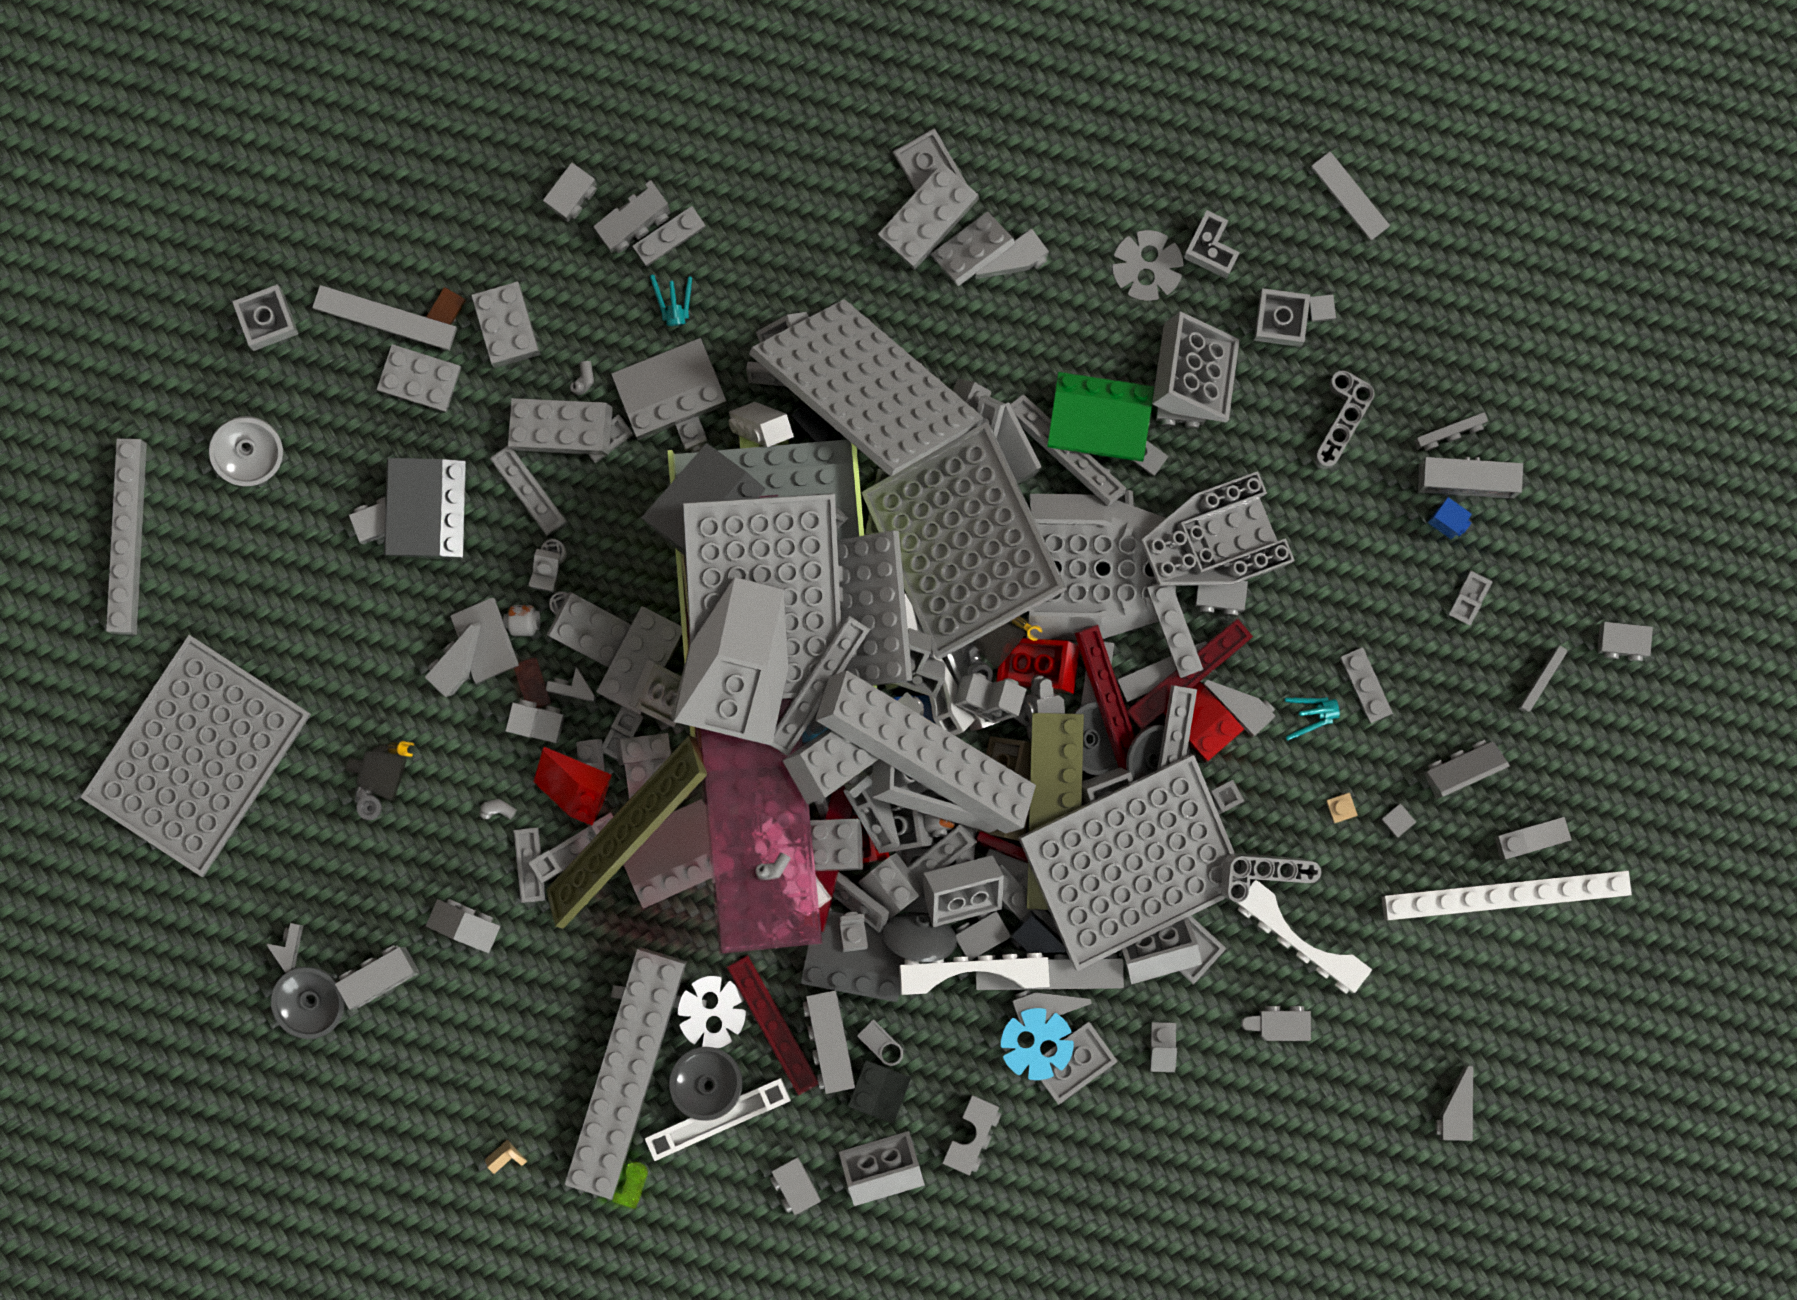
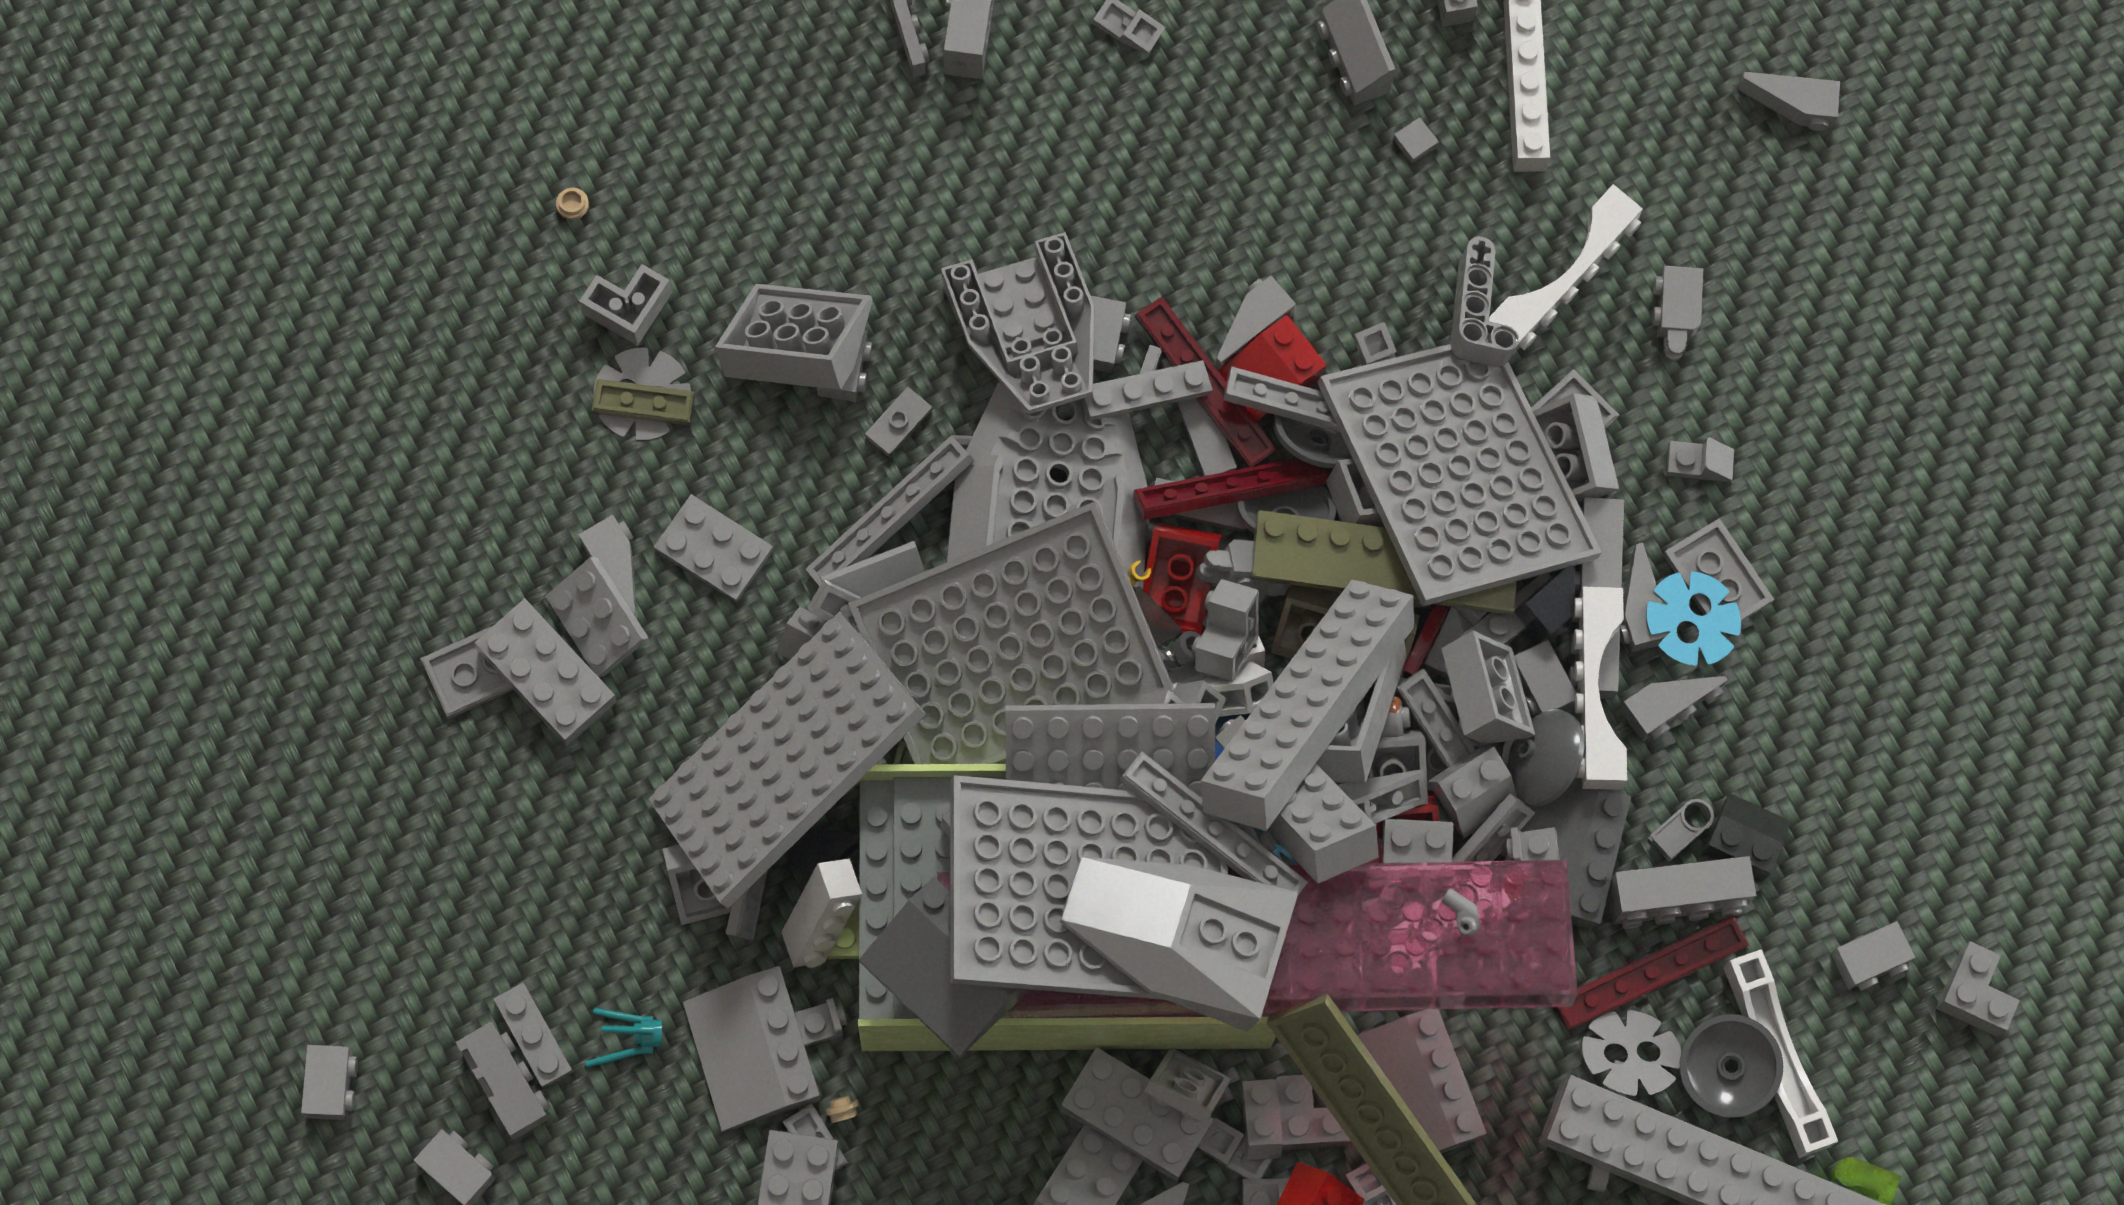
camera: 90 degrees left, 10 degrees down
(585, 381) = (729, 1169): light grey arm -> none
(624, 99) = (328, 1082): none -> light grey brick
(631, 455) = (842, 1109): none -> tan plate
(772, 1256) = (1970, 996): none -> light grey brick
(881, 1168) = (1852, 839): light grey slope -> none
(965, 1156) = (1838, 725): light grey arch -> none
(972, 1023) = (1663, 702): none -> light grey slope
(1034, 327) = (713, 548): none -> light grey plate
(1100, 416) = (848, 465): green slope -> none
(1140, 266) = (643, 402): none -> olive tile
(1200, 632) = (1152, 359): none -> light grey tile
(1282, 317) = (734, 222): light grey brick -> none
(1288, 199) = (572, 203): none -> tan plate
(1322, 308) = (724, 175): light grey tile -> none
(1325, 710) = (1266, 216): teal plant -> none
(1341, 423) = (882, 163): light grey beam -> none
(1341, 808) = (1395, 209): tan plate -> none
(1350, 196) = (576, 126): light grey tile -> none
(1366, 685) = (1234, 164): light grey plate -> none
(1450, 519) = (1024, 34): blue brick -> none

